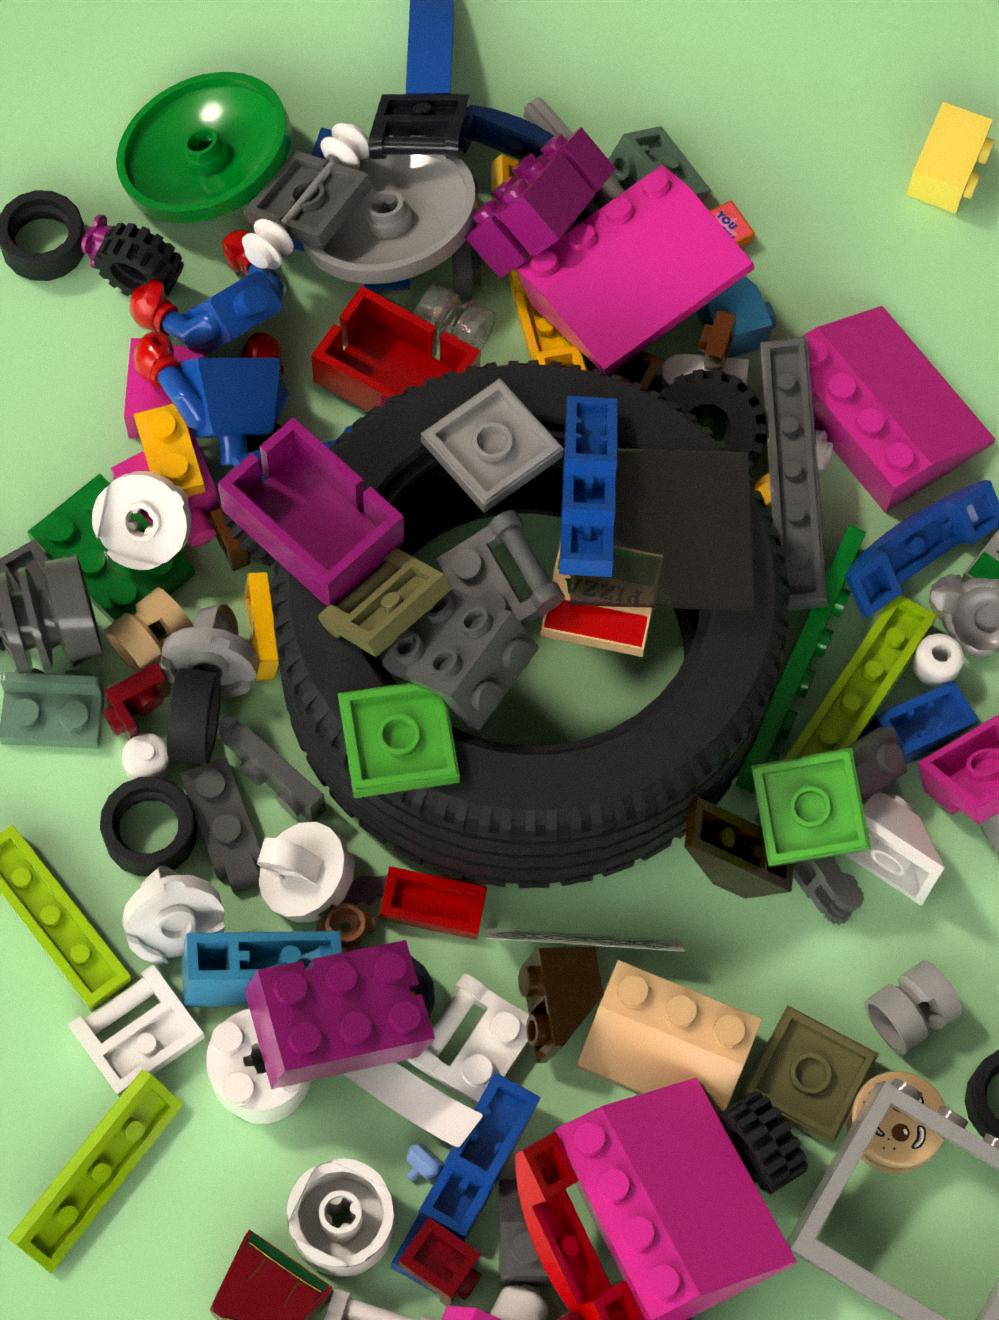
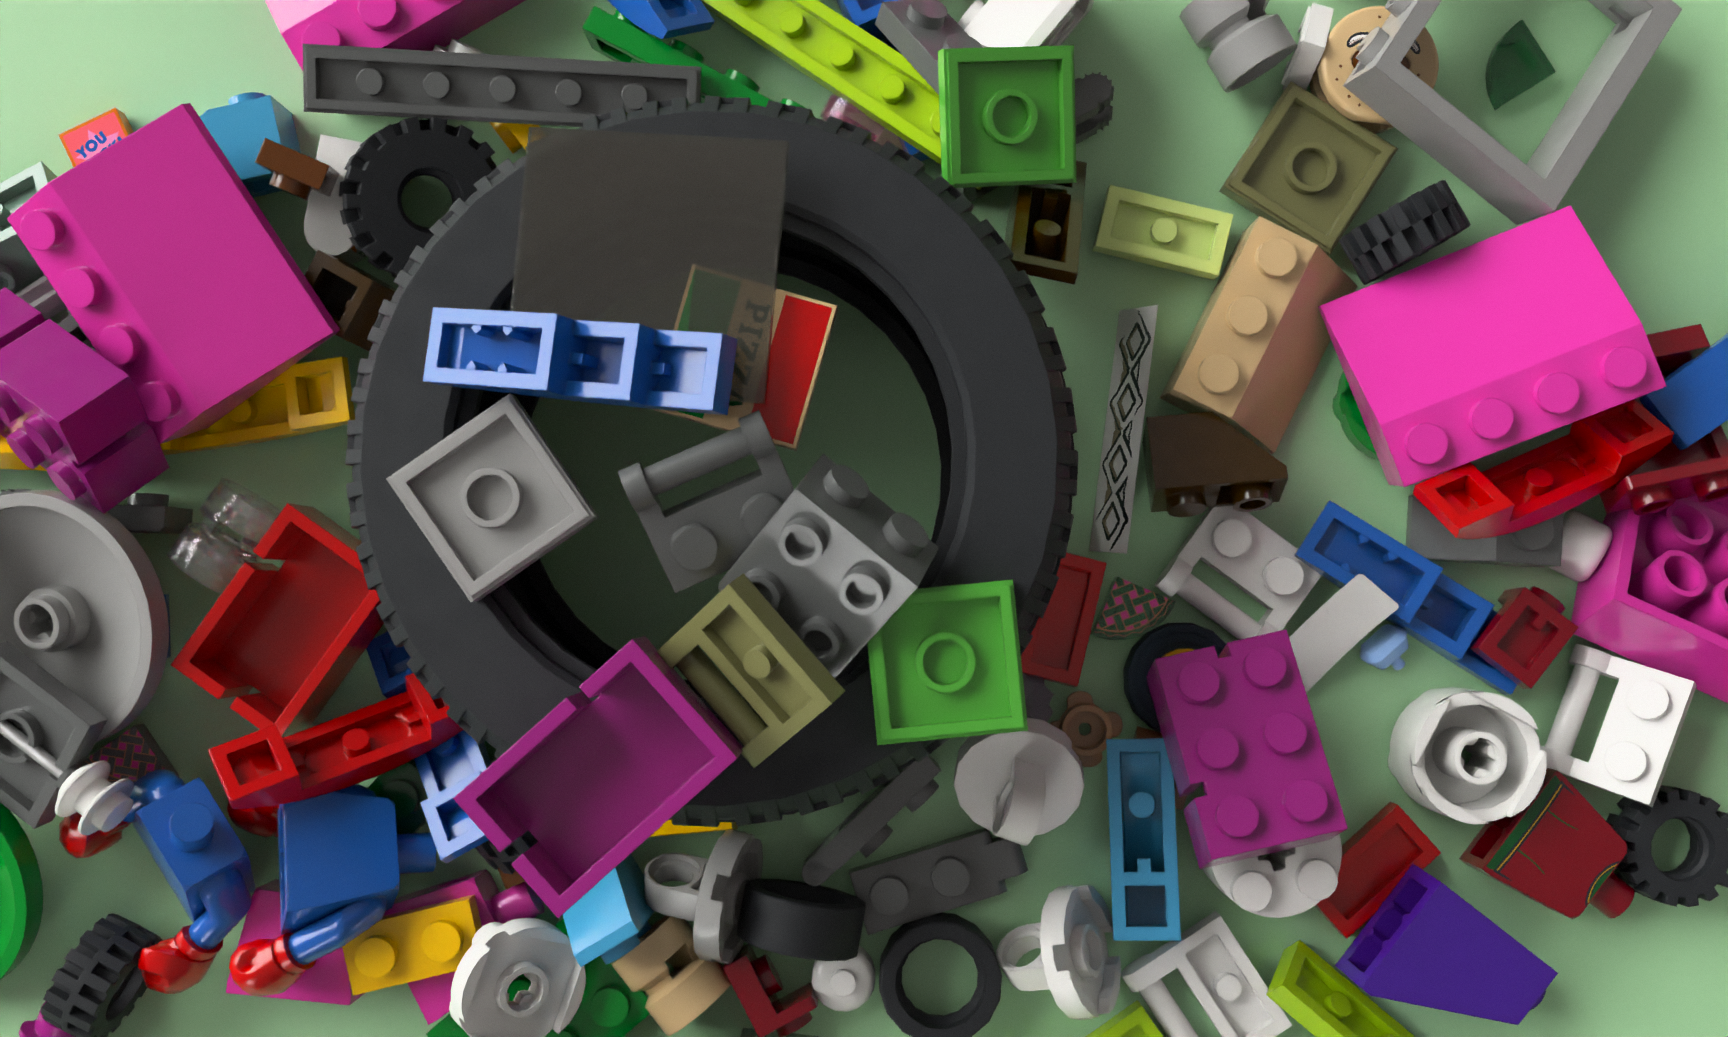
camera: 80 degrees left, 20 degrees up
(176, 1214) = (1444, 955): none -> dark purple slope
(200, 578) = (609, 916): none -> dark azure slope
(242, 1159) = (1373, 866): none -> red tile
(295, 274) = (132, 755): none -> dark grey tile
(297, 376) = (335, 754): none -> red slope
(441, 957) = (1130, 611): none -> clear green tile
(746, 960) = (1162, 232): none -> yellowish green plate
(801, 719) = (851, 114): none -> tile
(912, 1063) = (1310, 47): none -> white tile
(917, 1247) = (1515, 66): none -> clear green tile

